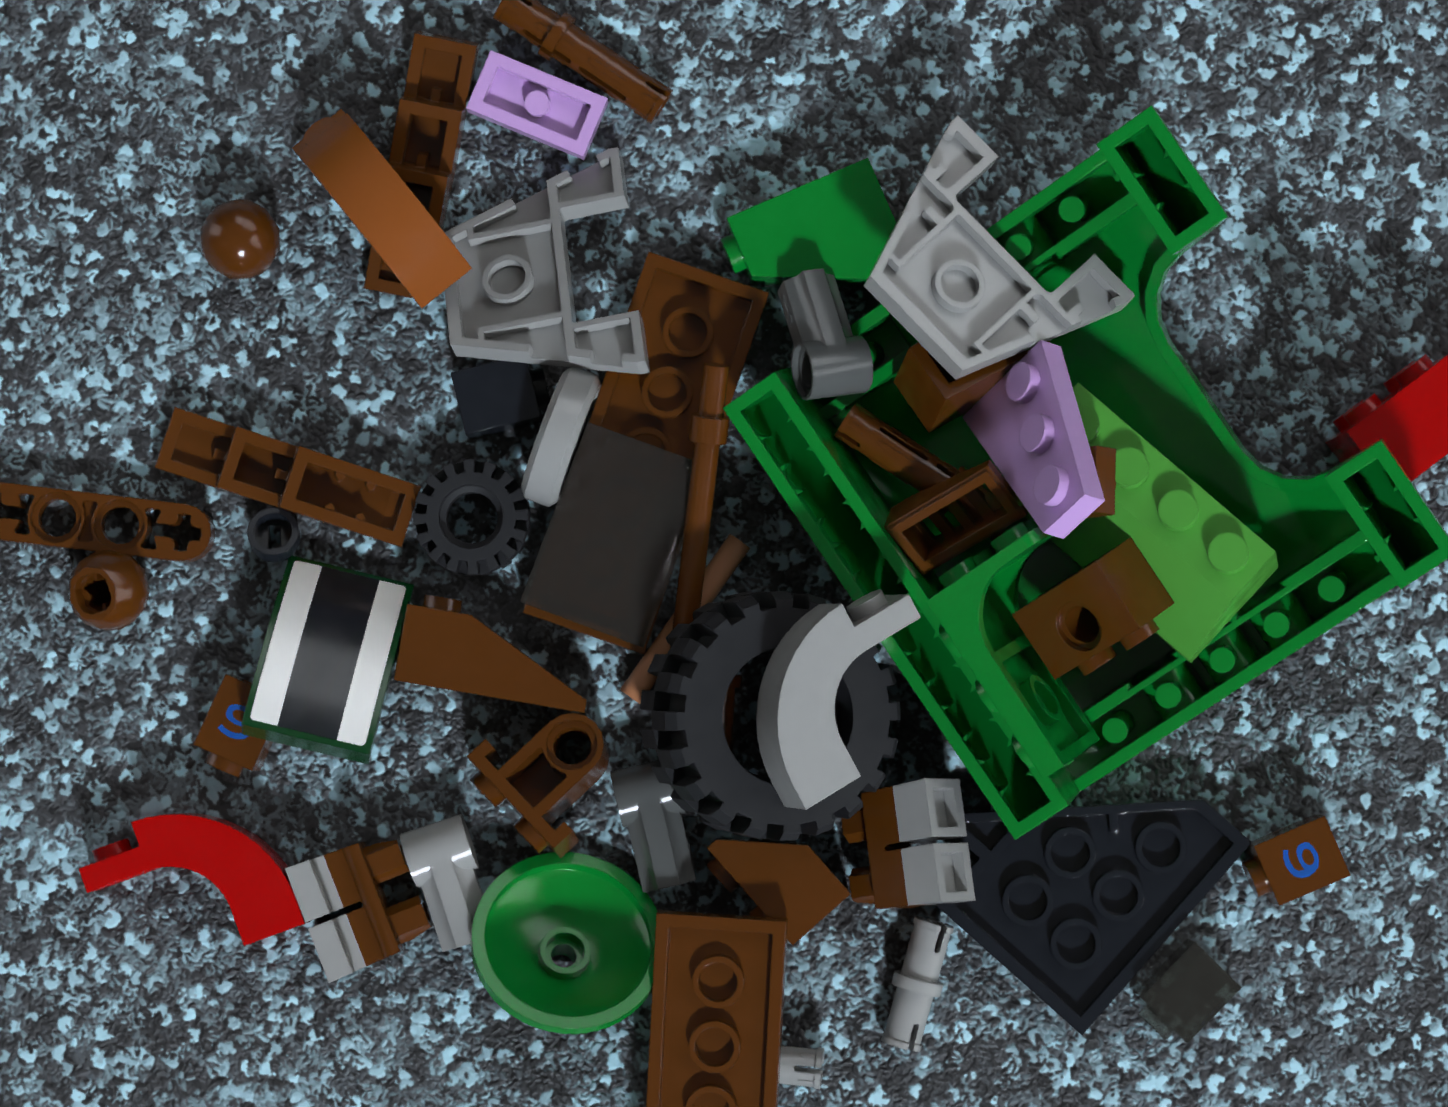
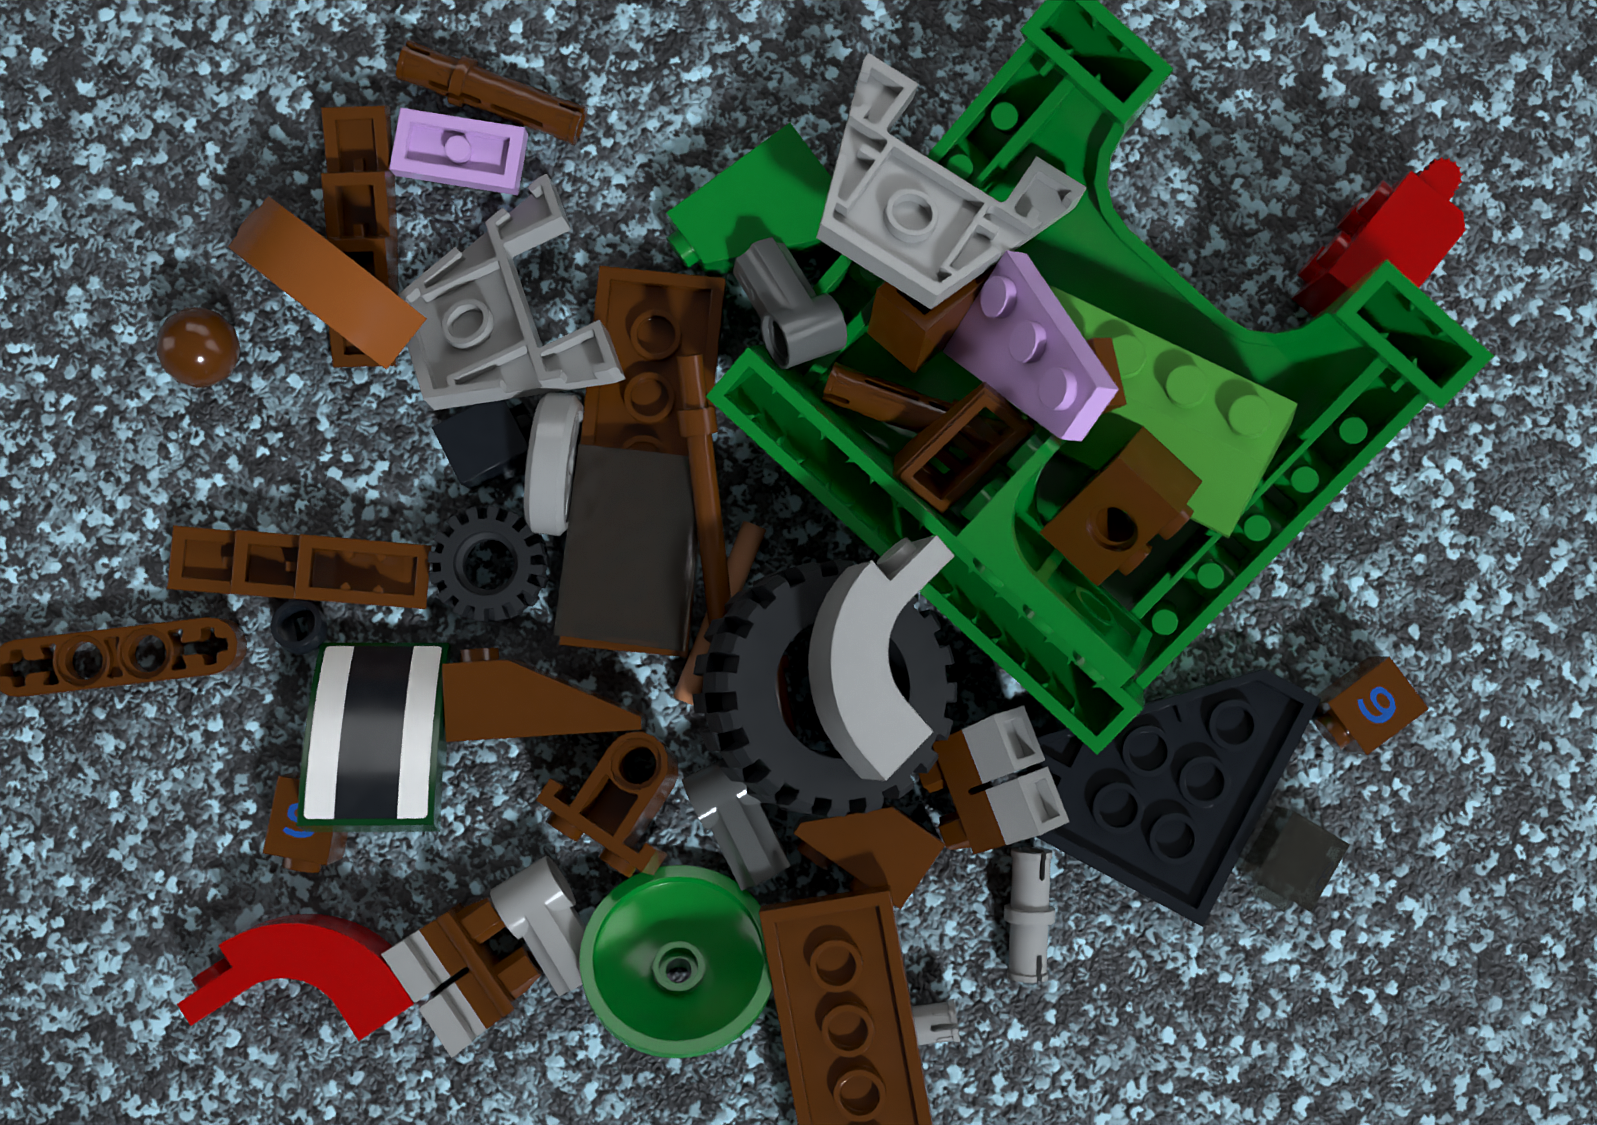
camera: 20 degrees left, 0 degrees up
(108, 590) = (147, 719): reddish brown piece -> none

